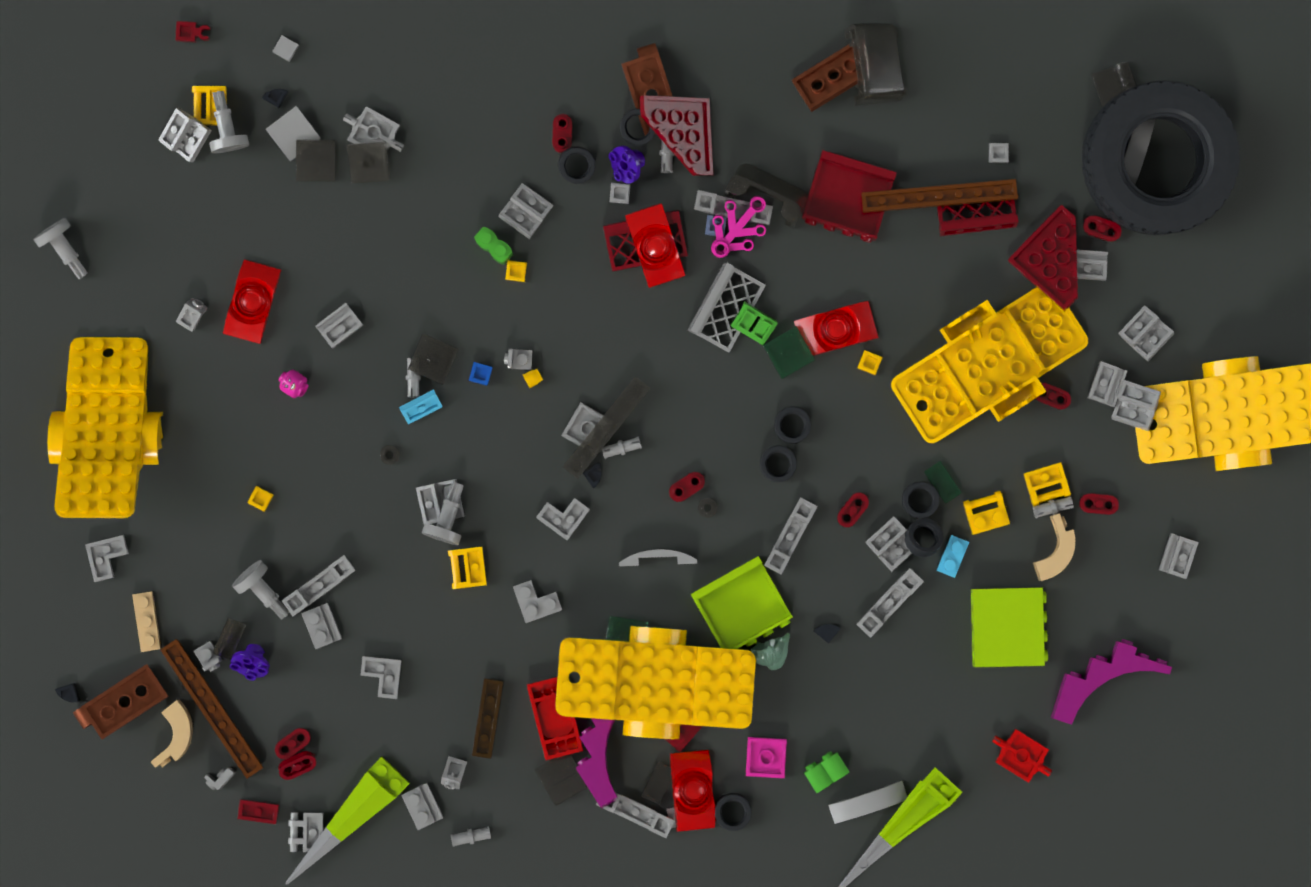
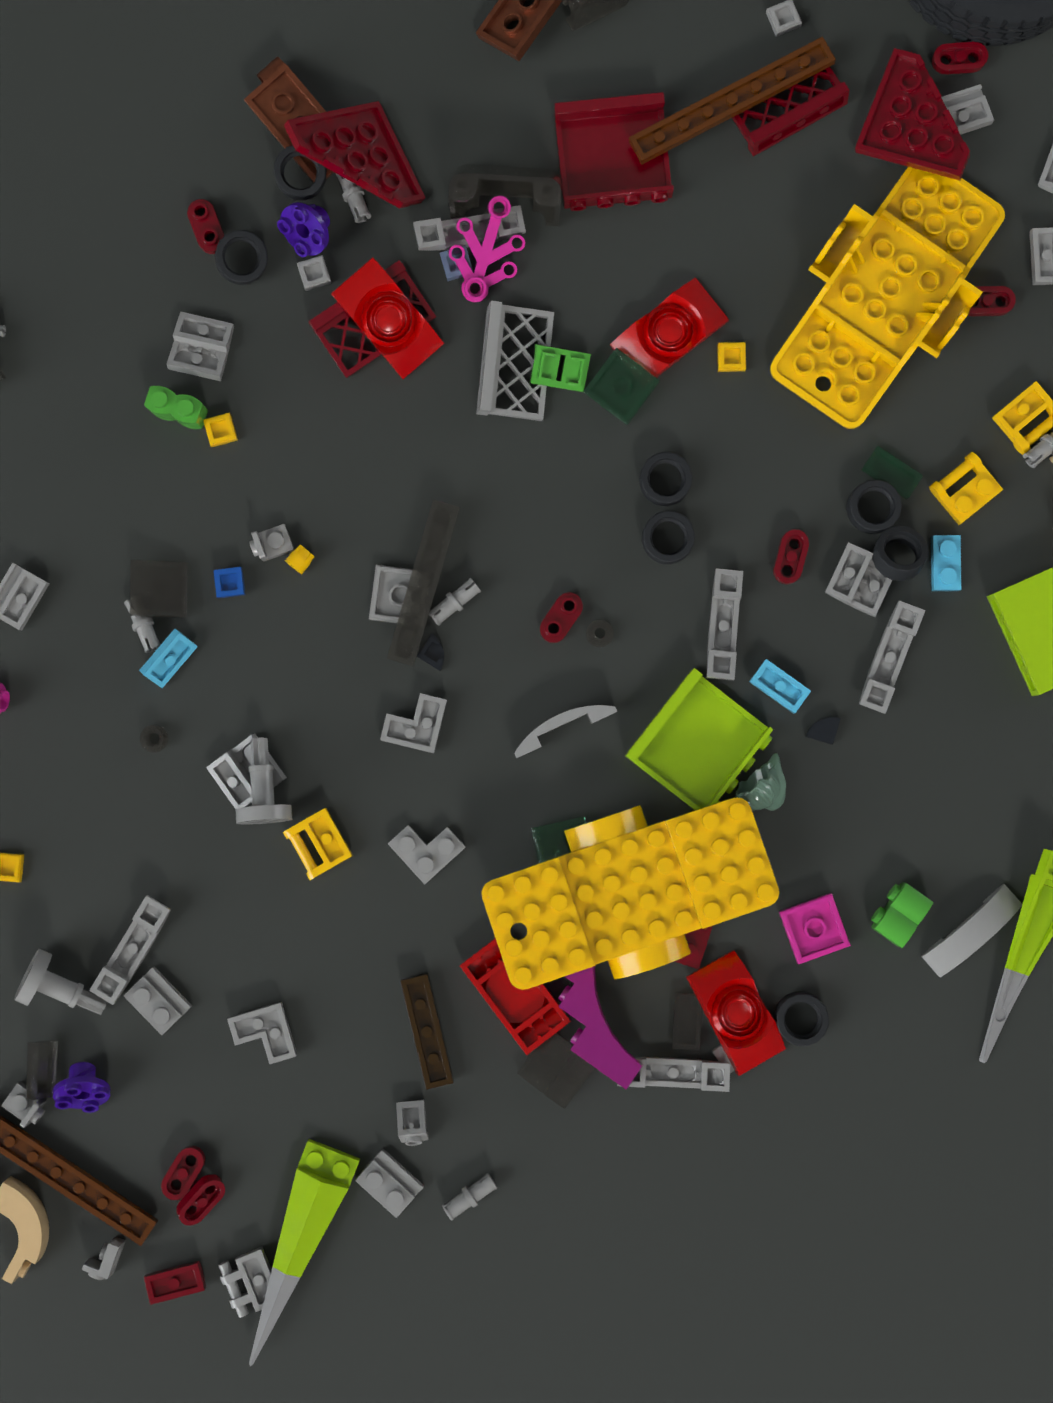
camera: 20 degrees left, 0 degrees up
(810, 591) = (780, 686): none -> medium azure plate

